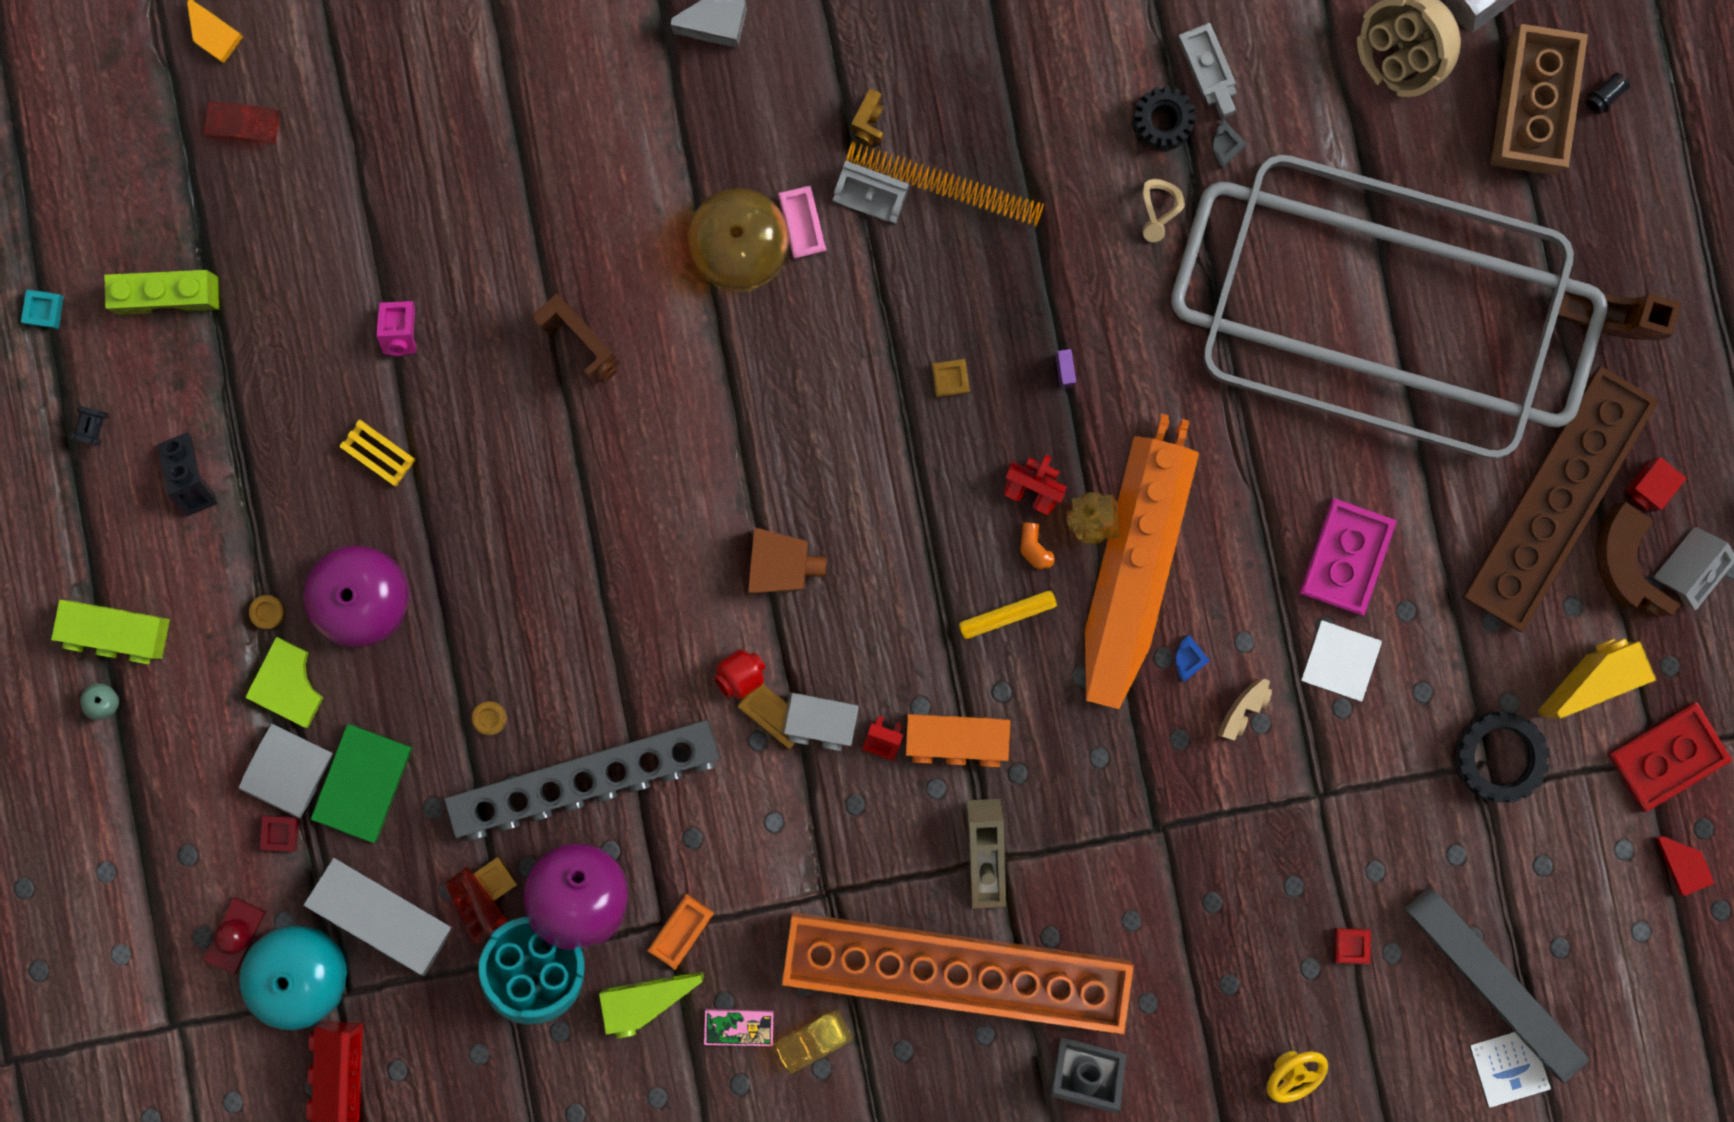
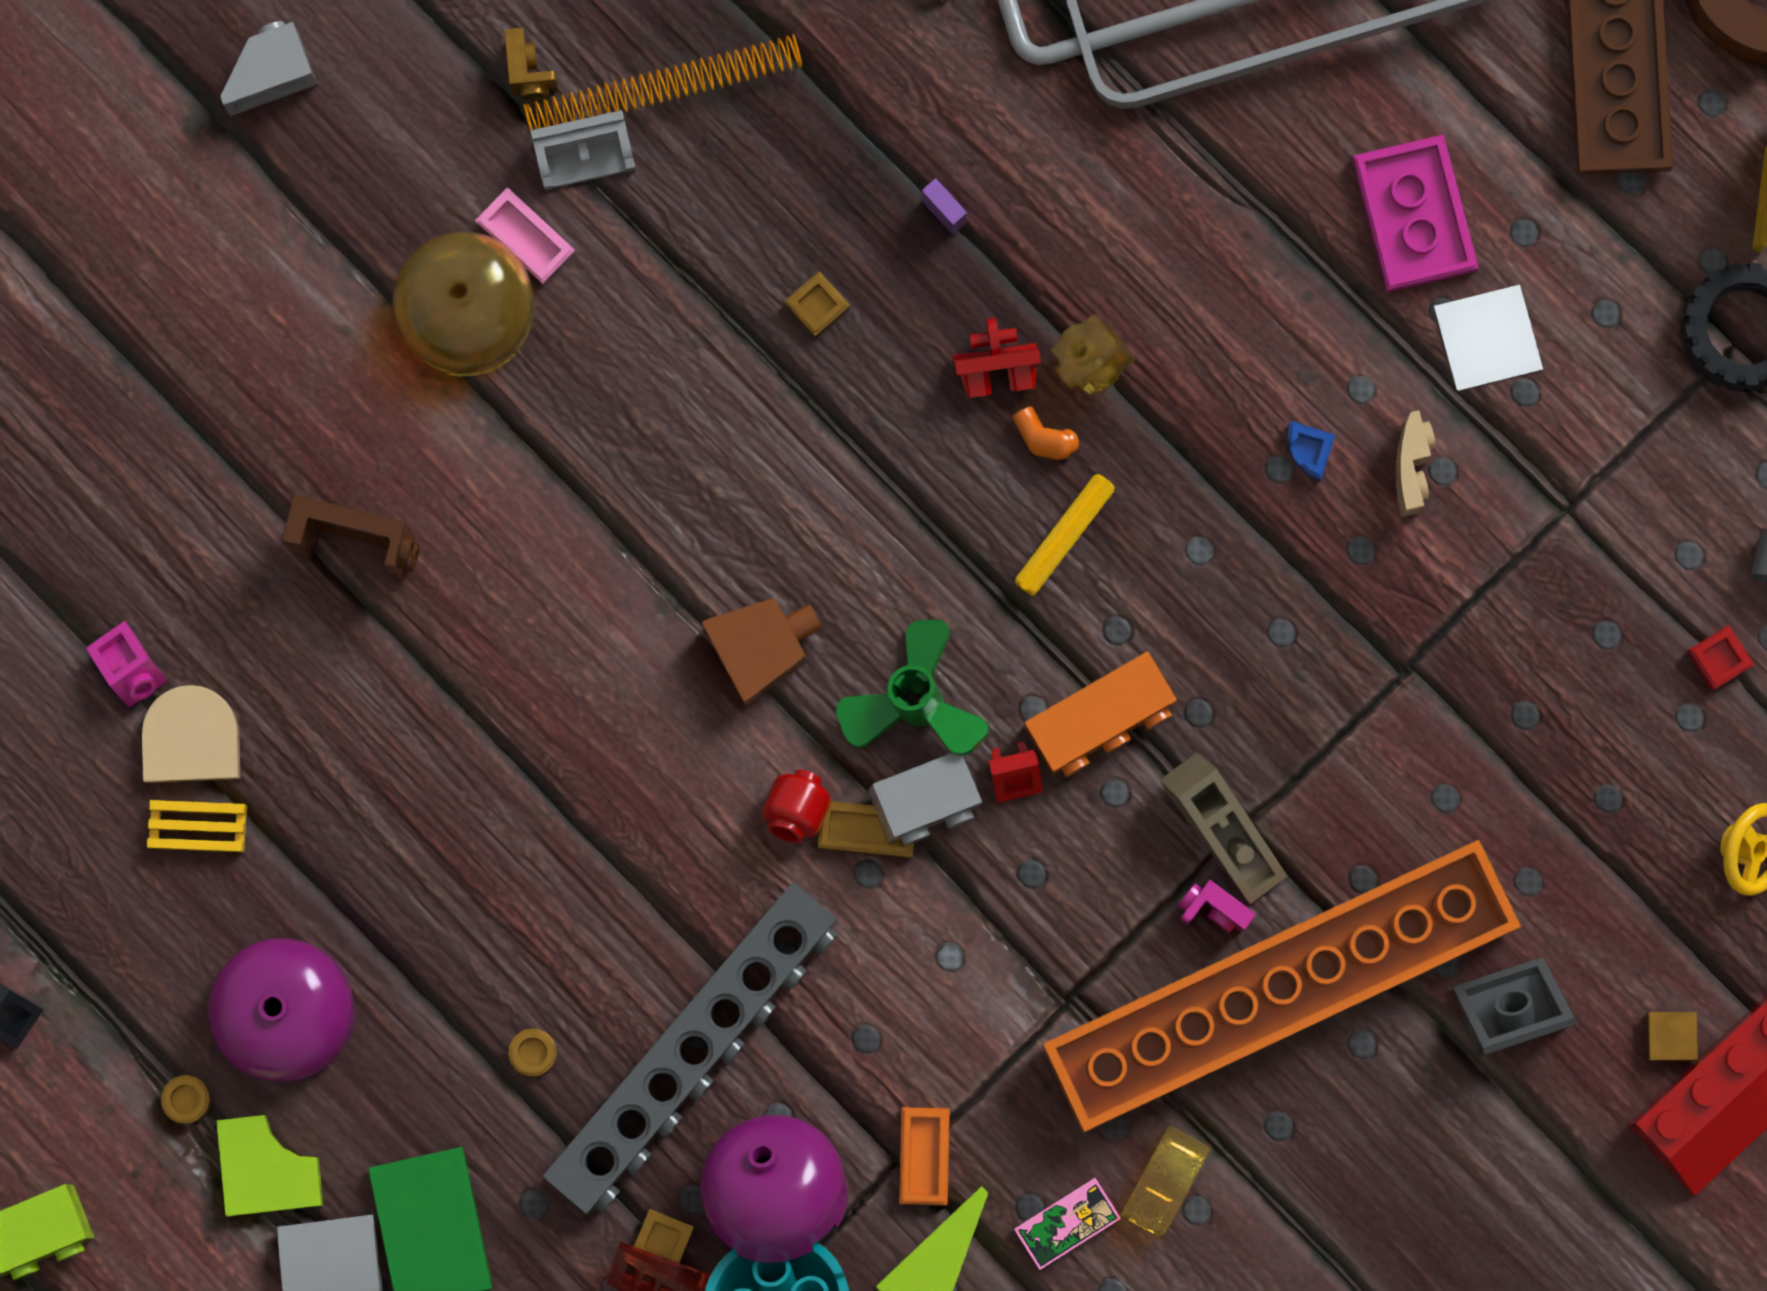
camera: 25 degrees left, 5 degrees down
(407, 396) = (190, 737): none -> tan tile
(819, 649) = (870, 716): none -> green piece
(954, 904) = (1224, 908): none -> dark pink bracket
(1137, 563) = (1175, 377): orange hinge -> none

